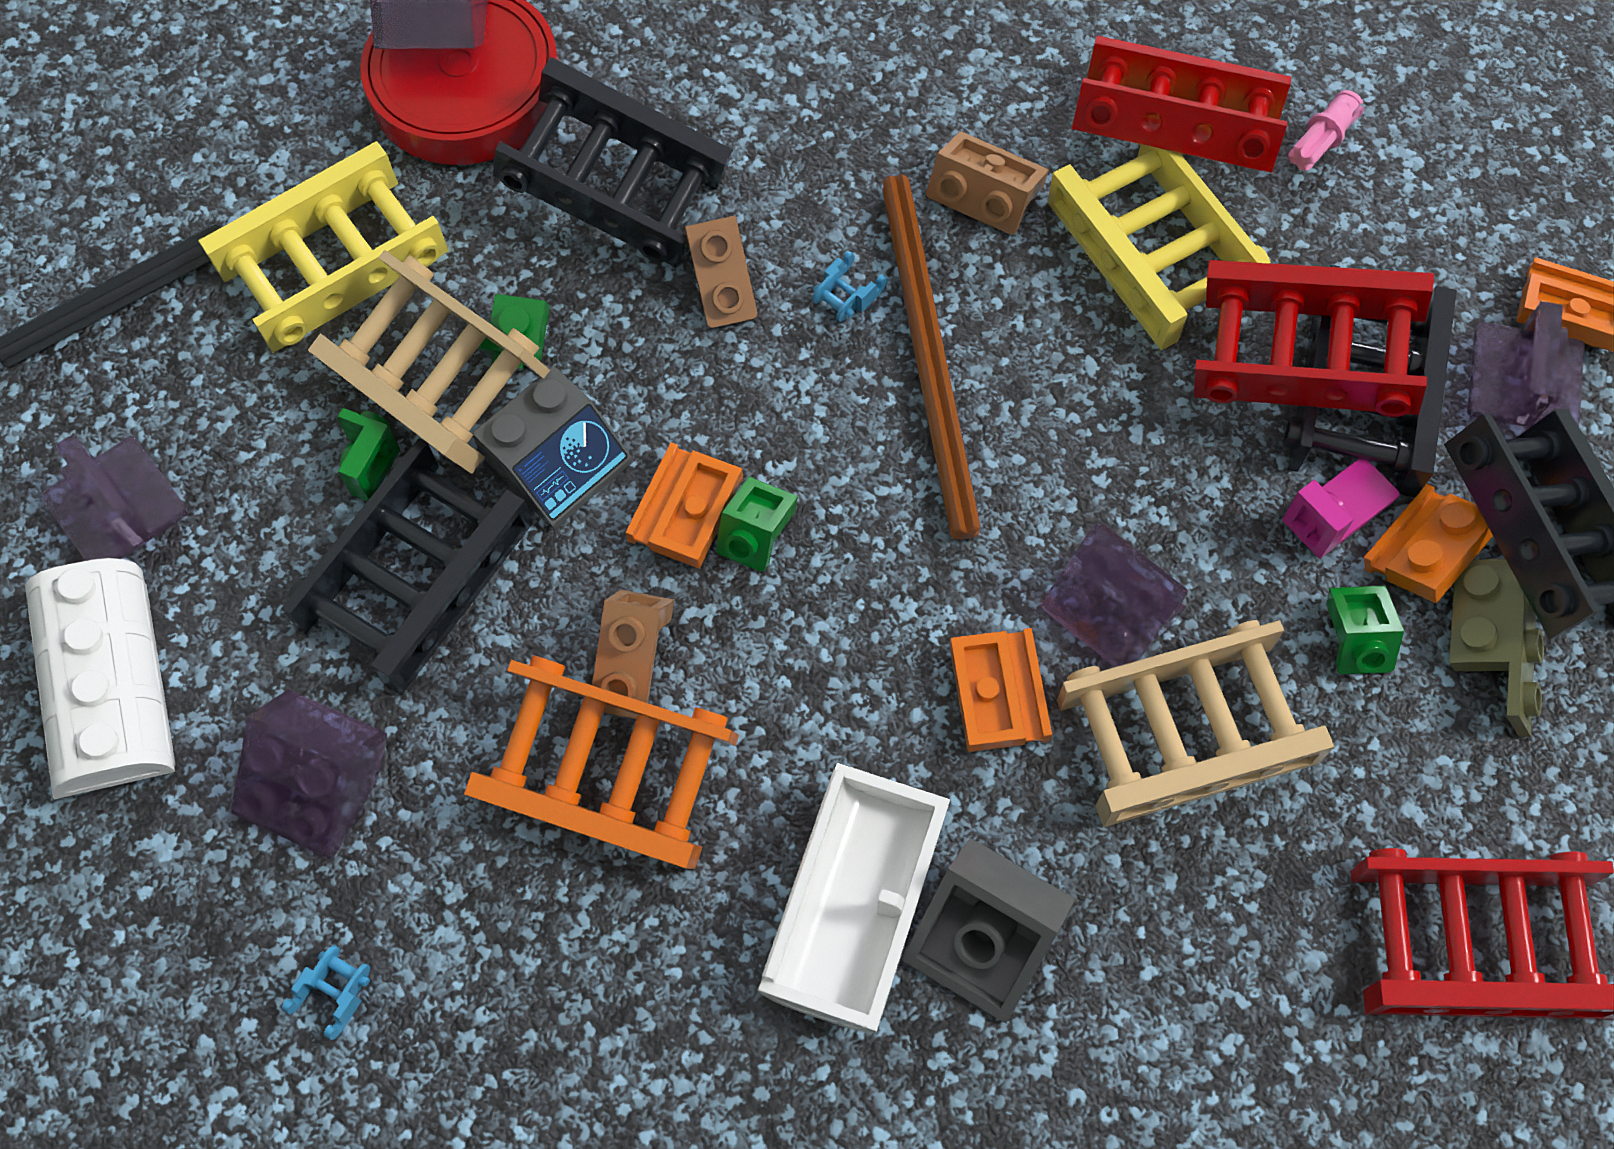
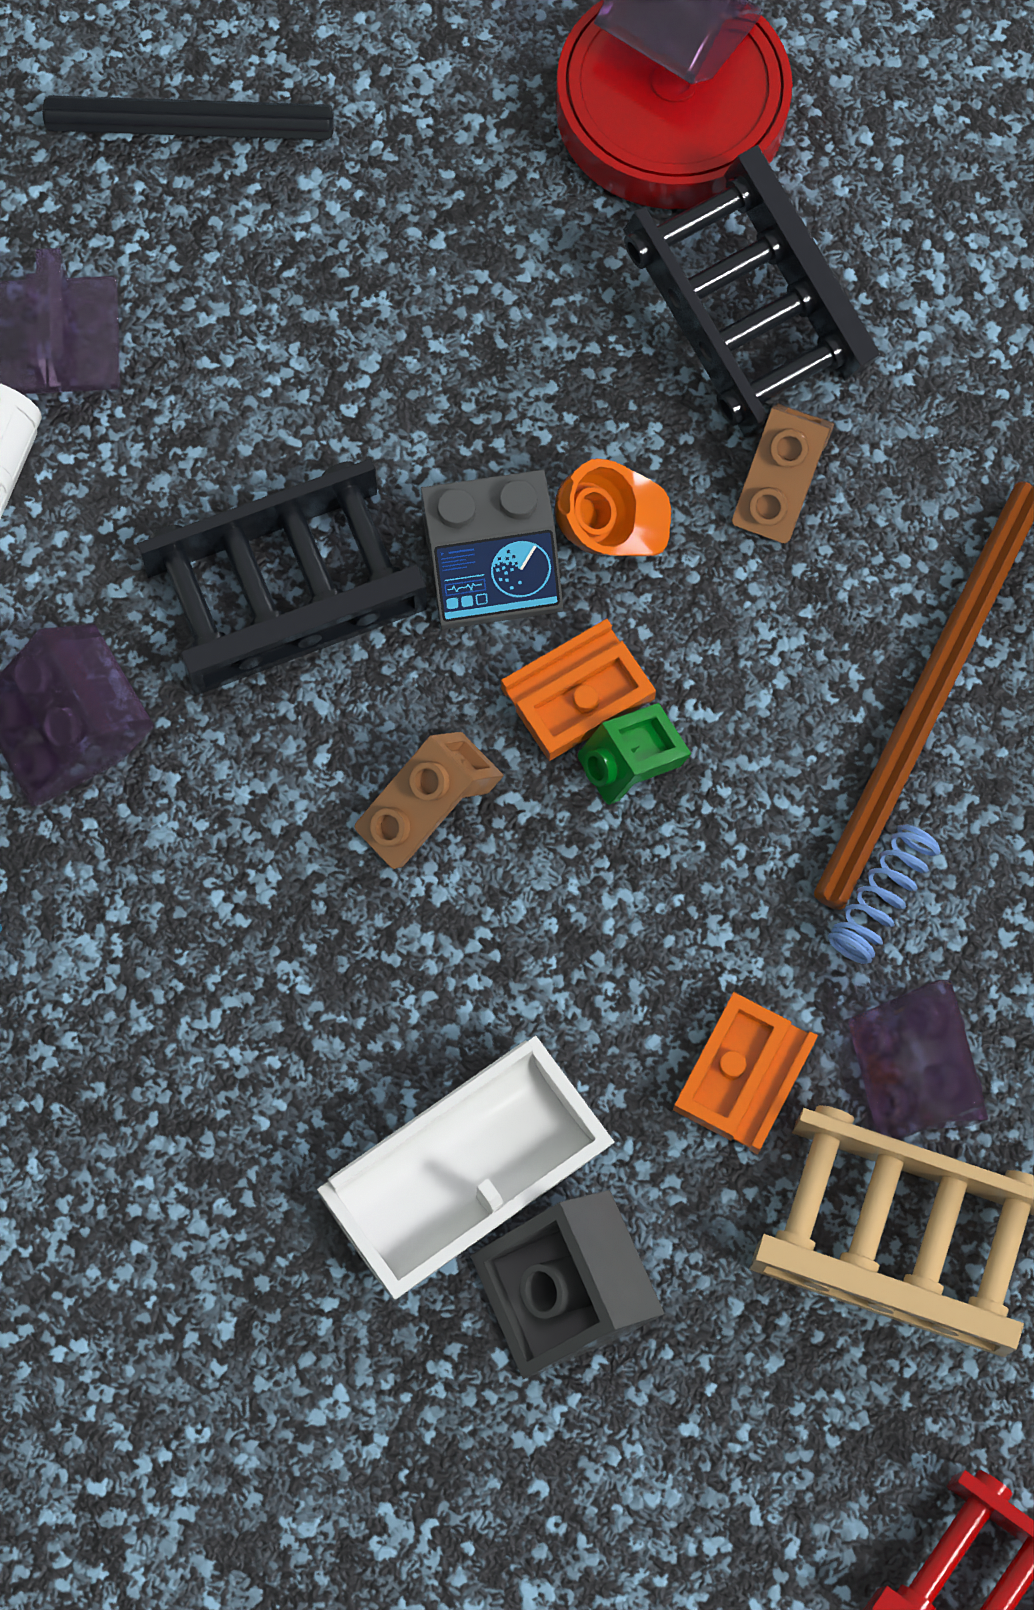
camera: 30 degrees right, 5 degrees up
(304, 210) = (417, 145): light yellow fence -> none
(370, 453) = (318, 443): green bracket -> none
(418, 407) = (373, 378): tan fence -> none
(522, 314) = (538, 406): green bracket -> none
(615, 818) = (301, 946): orange fence -> none
(620, 367) = (613, 510): none -> orange piece
(859, 298) = (903, 591): dark azure piece -> none
(998, 543) = (841, 936): none -> light blue piece

